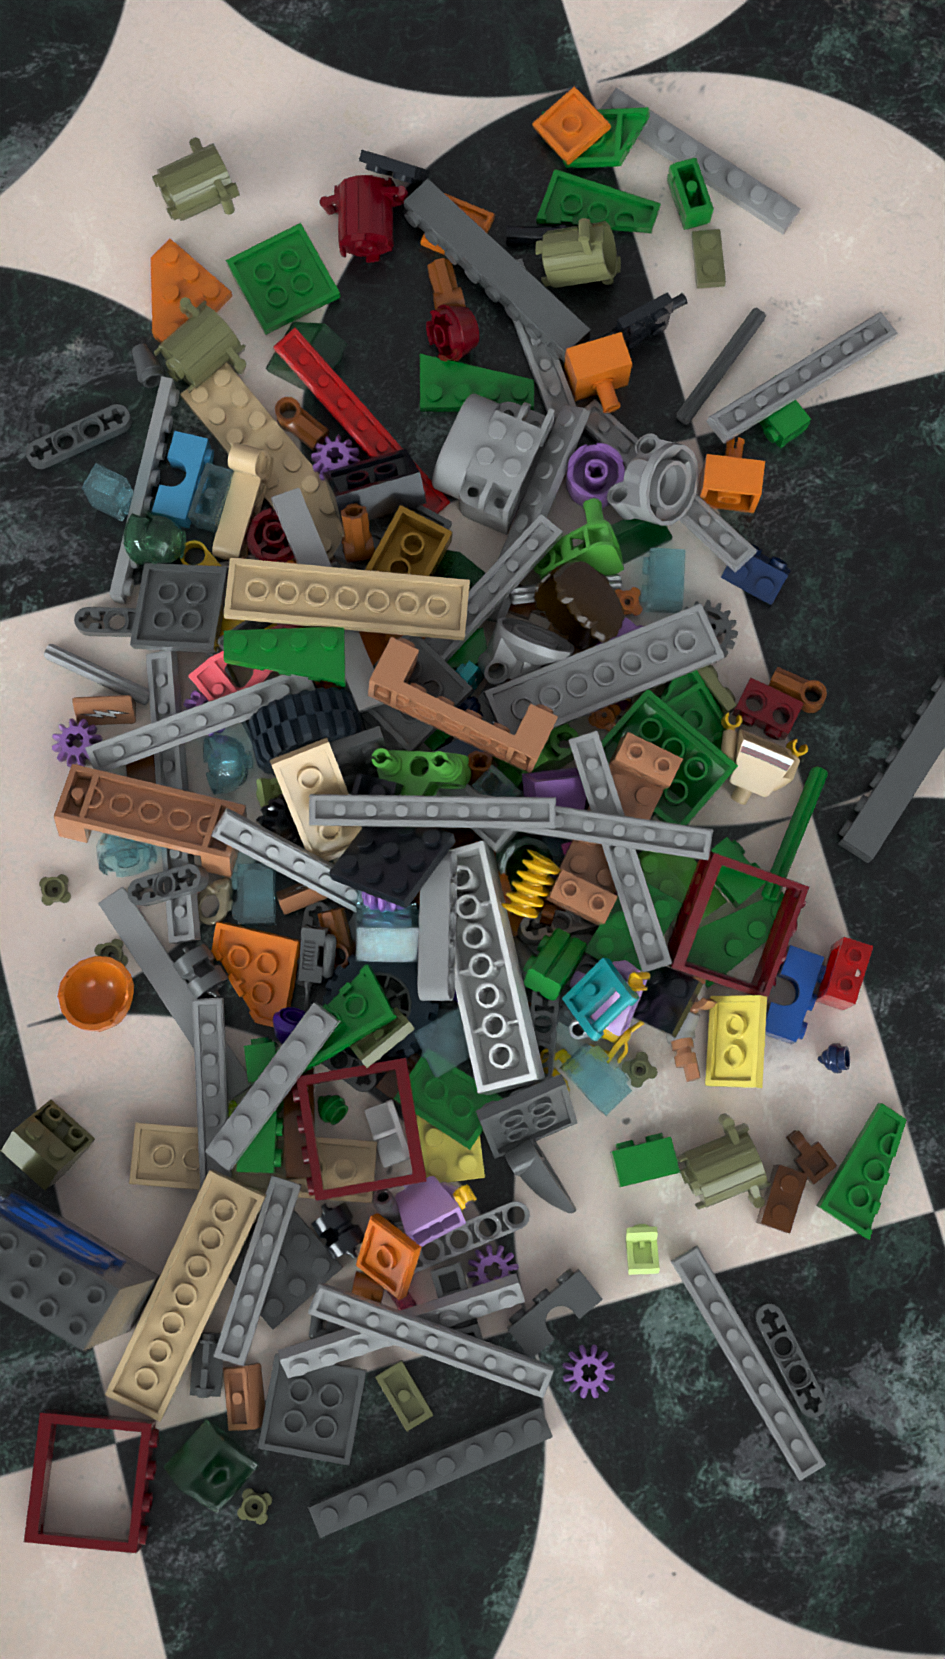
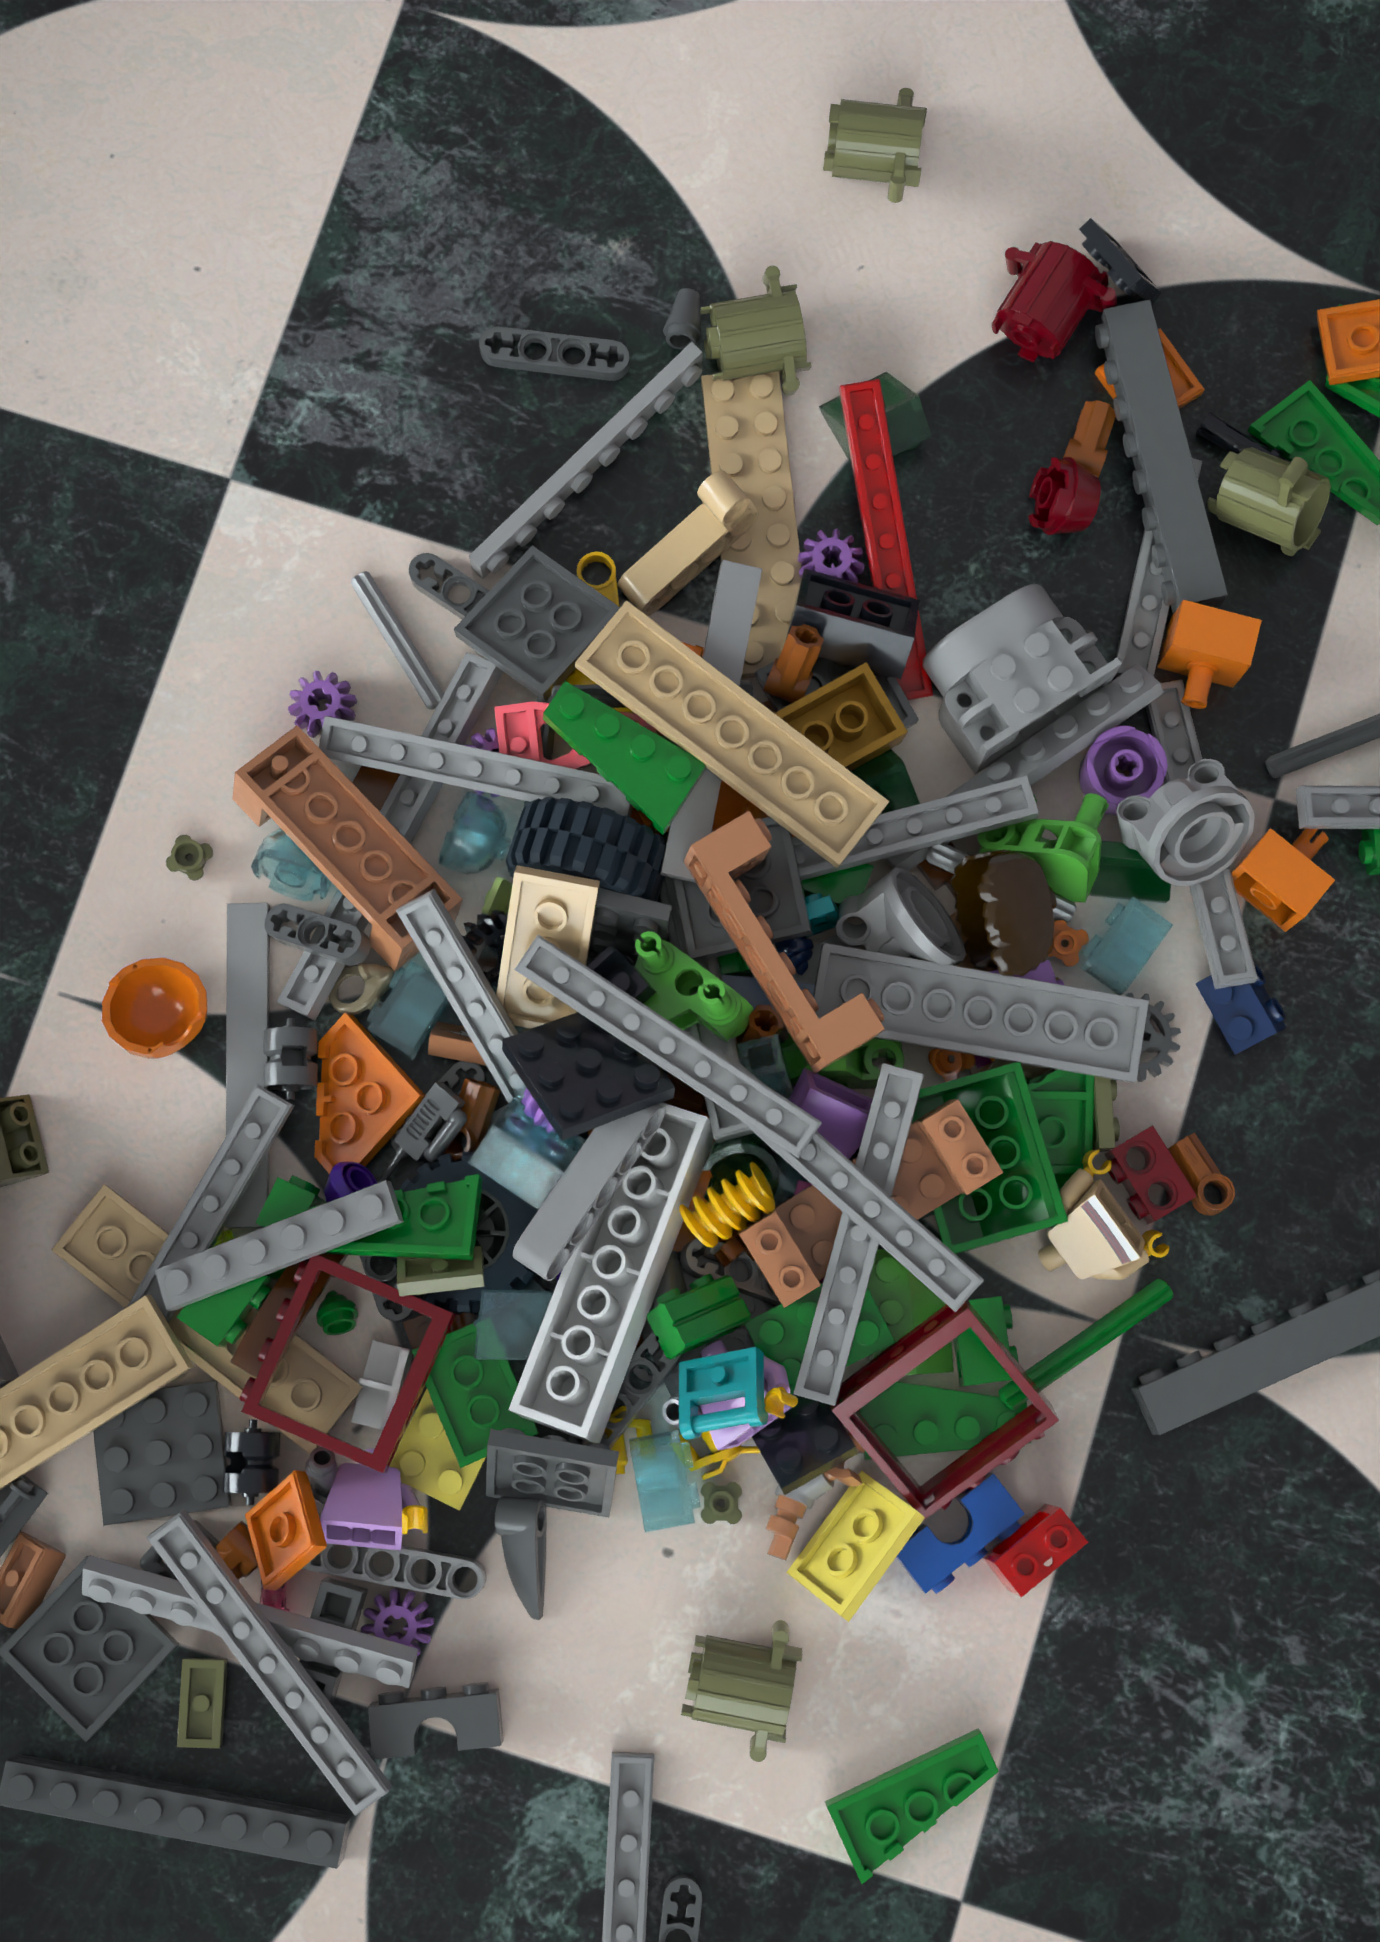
camera: 30 degrees right, 0 degrees up
(105, 709) = (379, 687): nougat slope -> none
(108, 492) = (543, 437): clear light blue brick -> none
(112, 947) = (214, 968): olive plate -> none
(159, 544) = (563, 534): clear green helmet -> none
(180, 276) = (784, 238): orange plate -> none
(190, 455) = (618, 501): dark azure arch -> none
(210, 497) = (656, 516): clear light blue brick -> none
(257, 1271) = (128, 1447): light grey plate -> none
(267, 538) = (689, 606): dark red cone -> none
(283, 278) = (907, 314): green plate -> none
(301, 424) = (817, 496): dark orange piece -> none
(449, 383) = (1023, 555): green wing -> none
(599, 1370) = (444, 1826): medium lavender gear -> none
(642, 1249) = (586, 1717): yellowish green bracket -> none
(644, 1161) = (657, 1614): green brick -> none
(647, 319) = (1303, 624): black plate -> none
(782, 1198) = (788, 1767): reddish brown brick -> none
(812, 1158) = (855, 1744): reddish brown plate -> none
(835, 1058) = (962, 1642): dark blue plate -> none

